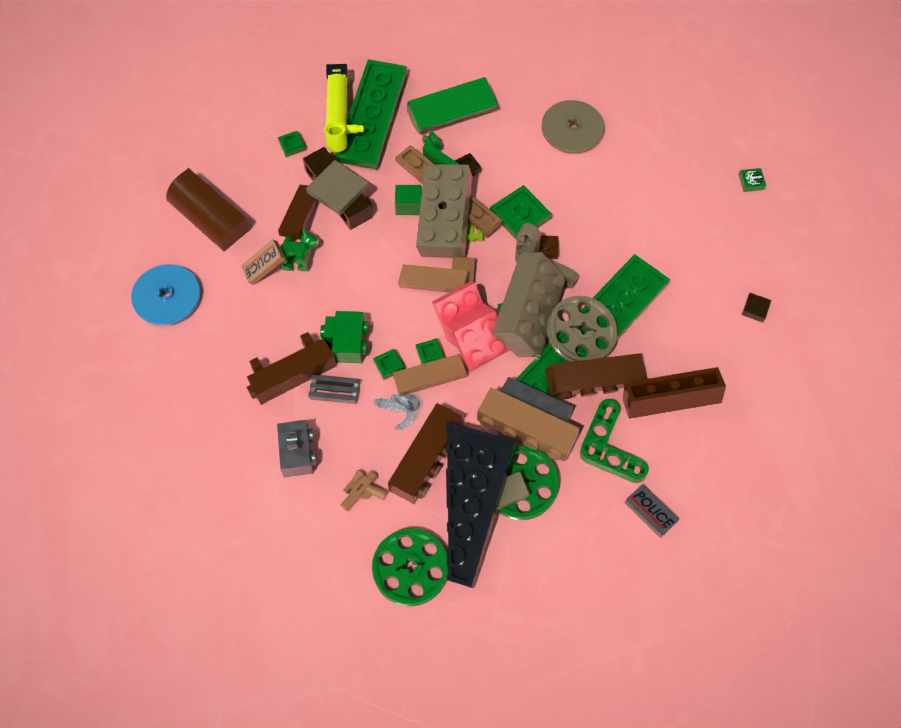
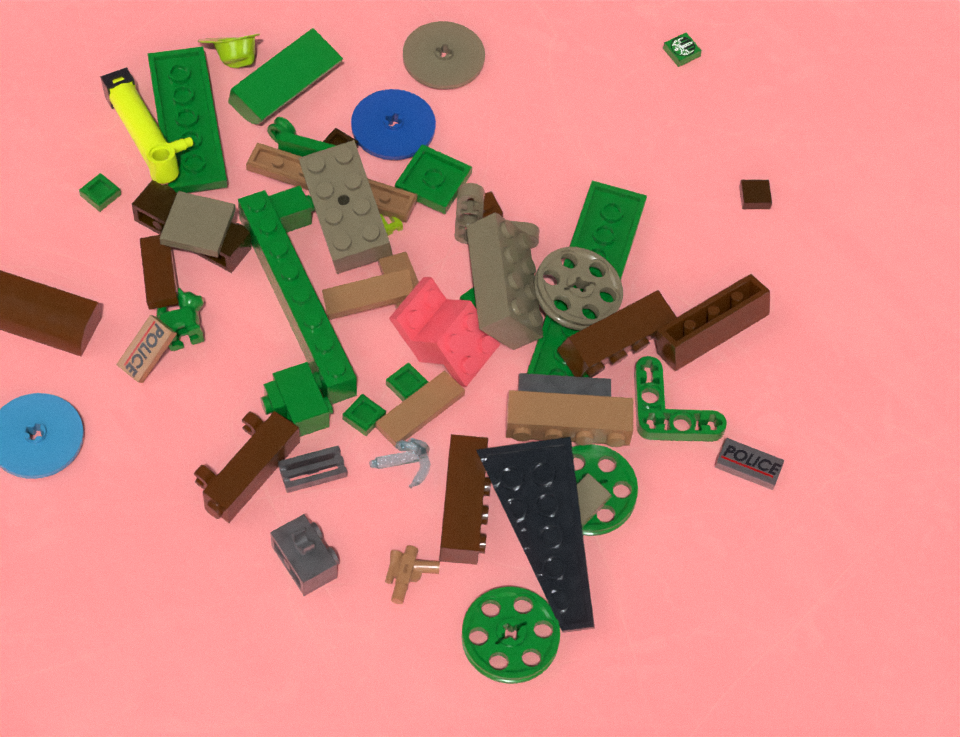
camera: 30 degrees left, 5 degrees down
(381, 265) = (297, 297): none -> green brick
(427, 76) = (234, 50): none -> lime piece
(516, 150) = (397, 142): none -> blue piece

